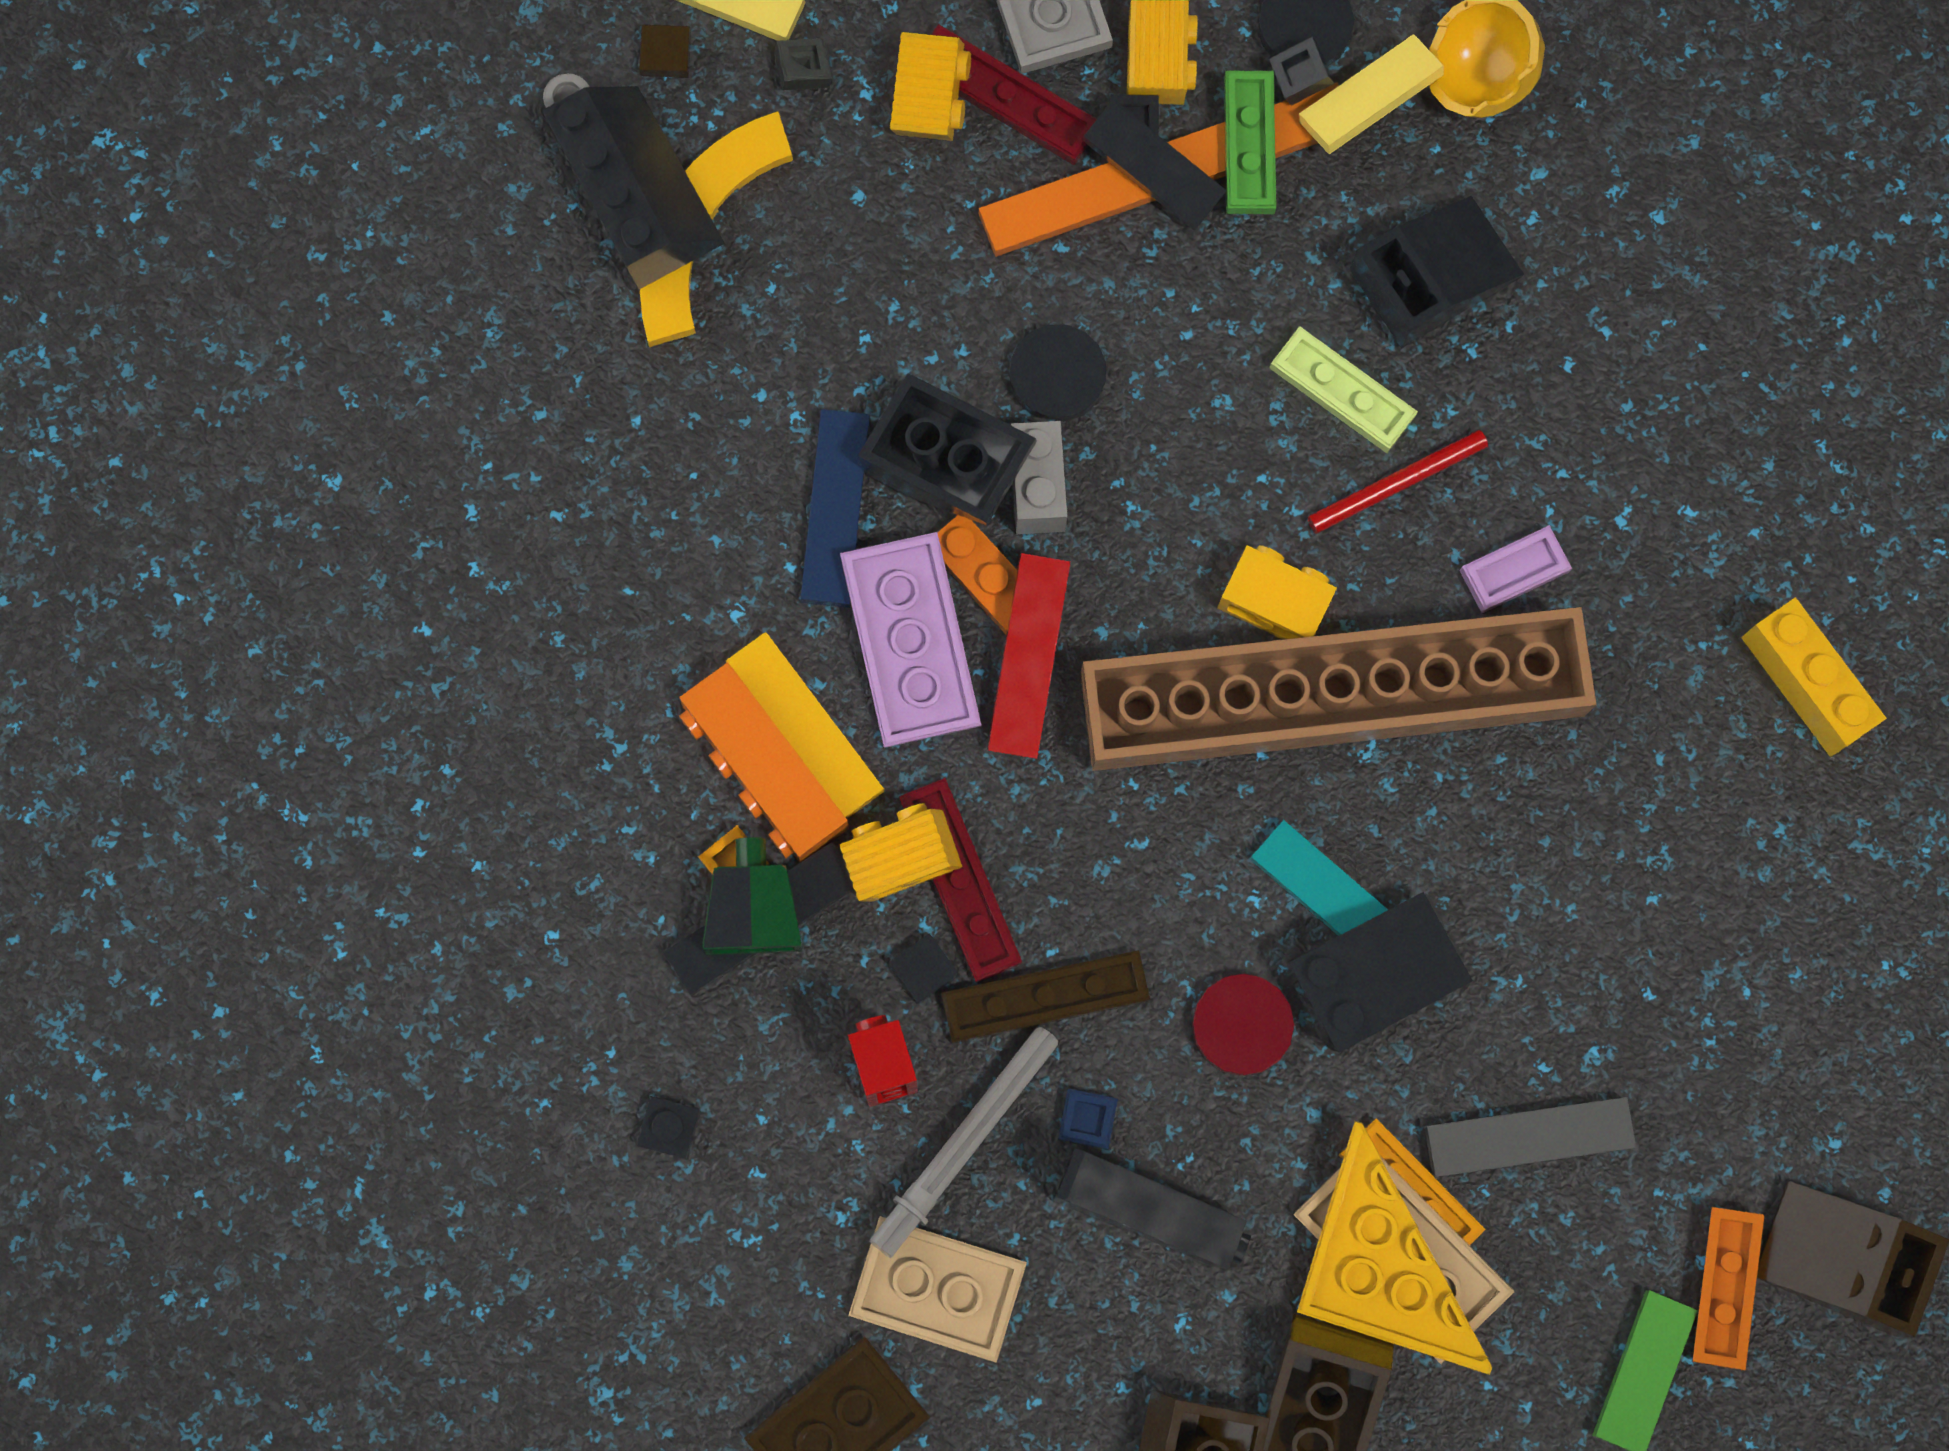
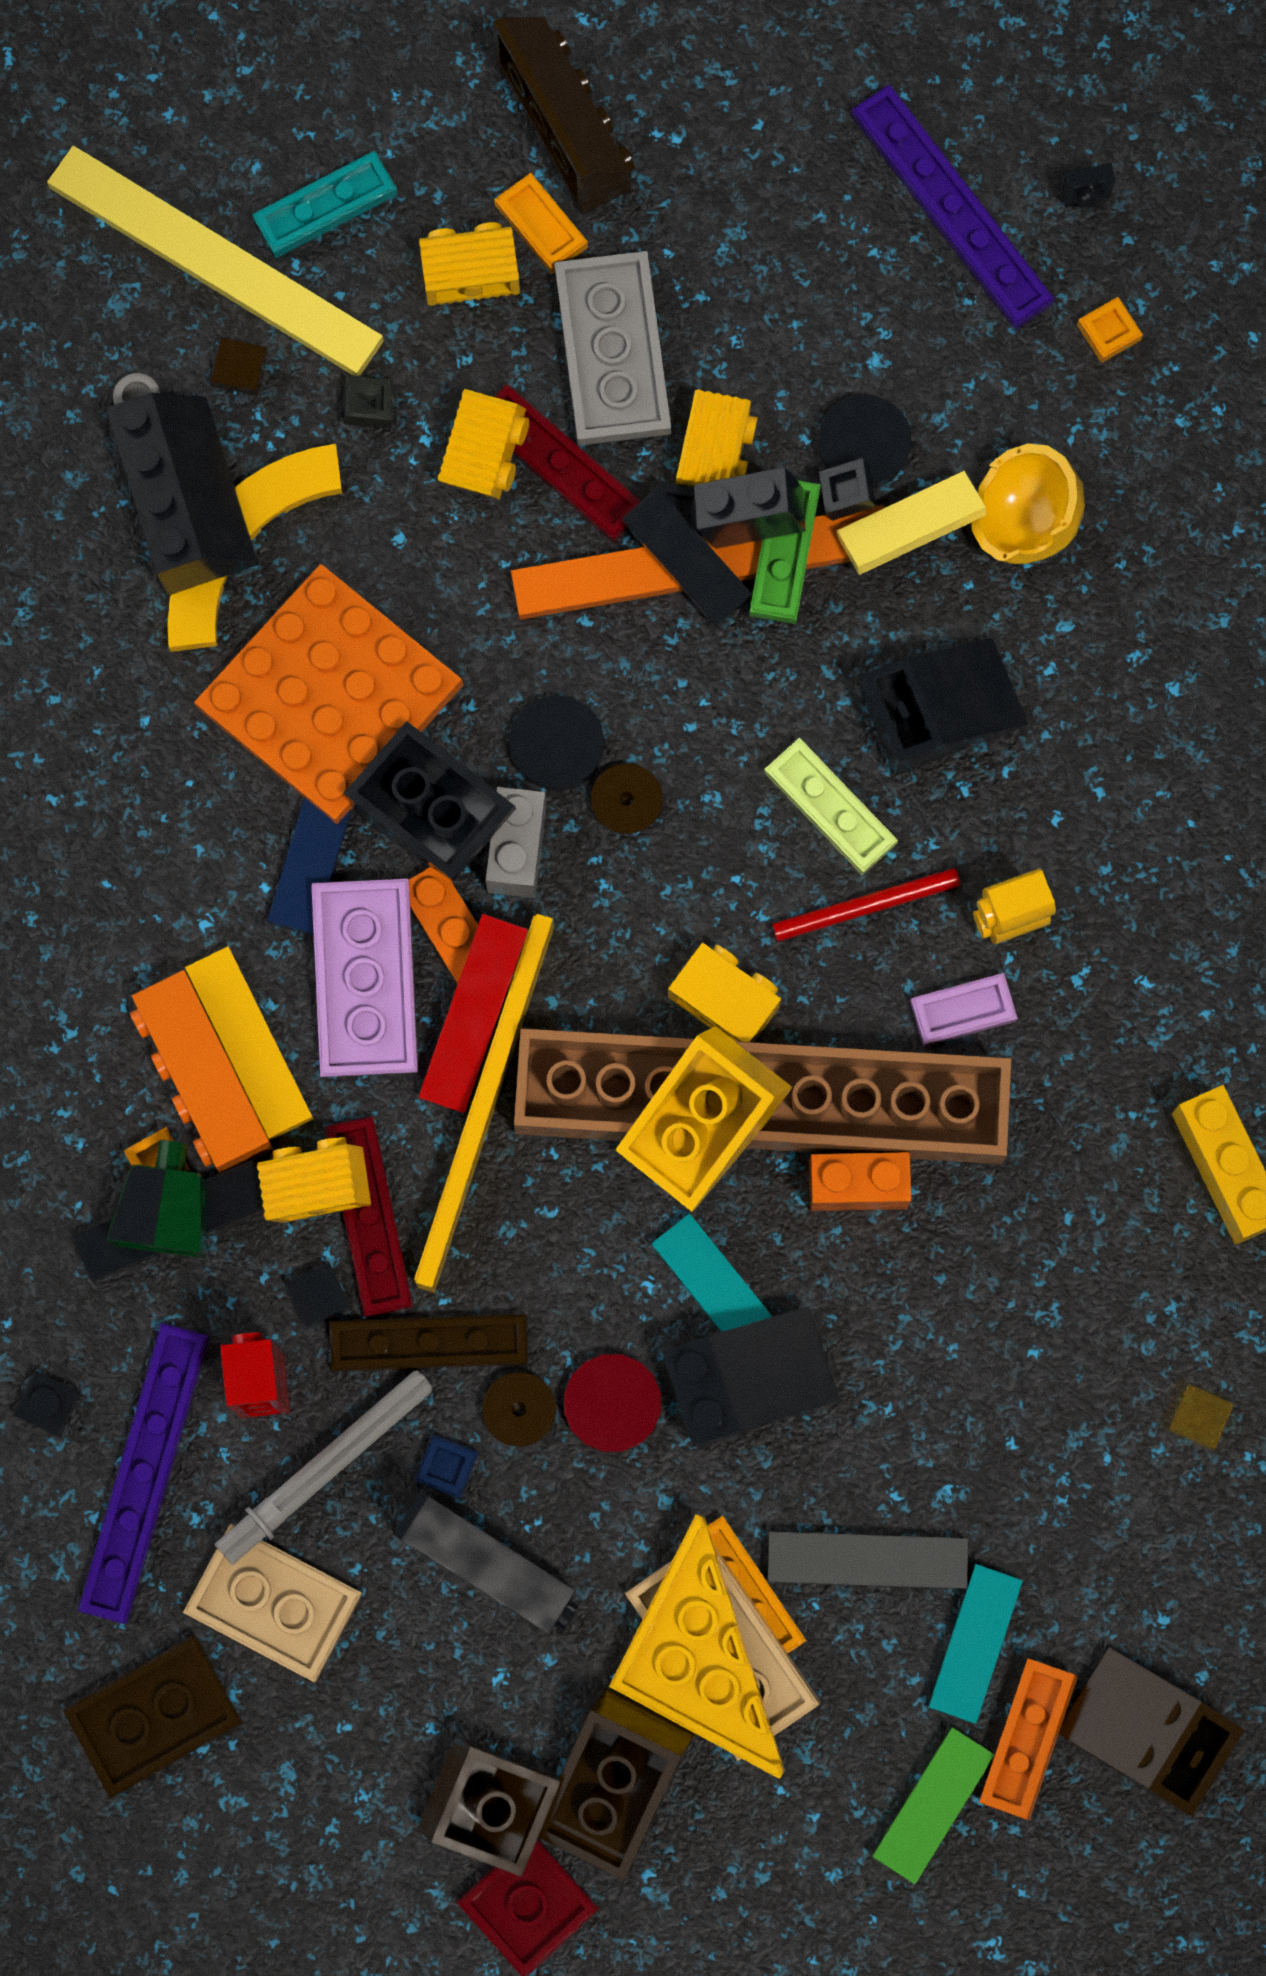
camera: 15 degrees right, 0 degrees up
(781, 1182) = (144, 1474): none -> dark purple tile
(816, 359) = (326, 690): none -> orange plate
(1056, 746) = (484, 1103): none -> yellow tile
(1139, 416) = (626, 798): none -> dark brown piece
(1150, 1047) = (519, 1409): none -> dark brown piece
(1210, 103) = (750, 507): none -> black brick
(1287, 719) = (703, 1117): none -> yellow slope
(1449, 757) = (859, 1181): none -> orange brick
(1552, 456) = (1014, 907): none -> yellow brick
(1654, 1202) = (975, 1644): none -> teal tile
(1832, 934) = (1200, 1417): none -> clear yellow tile

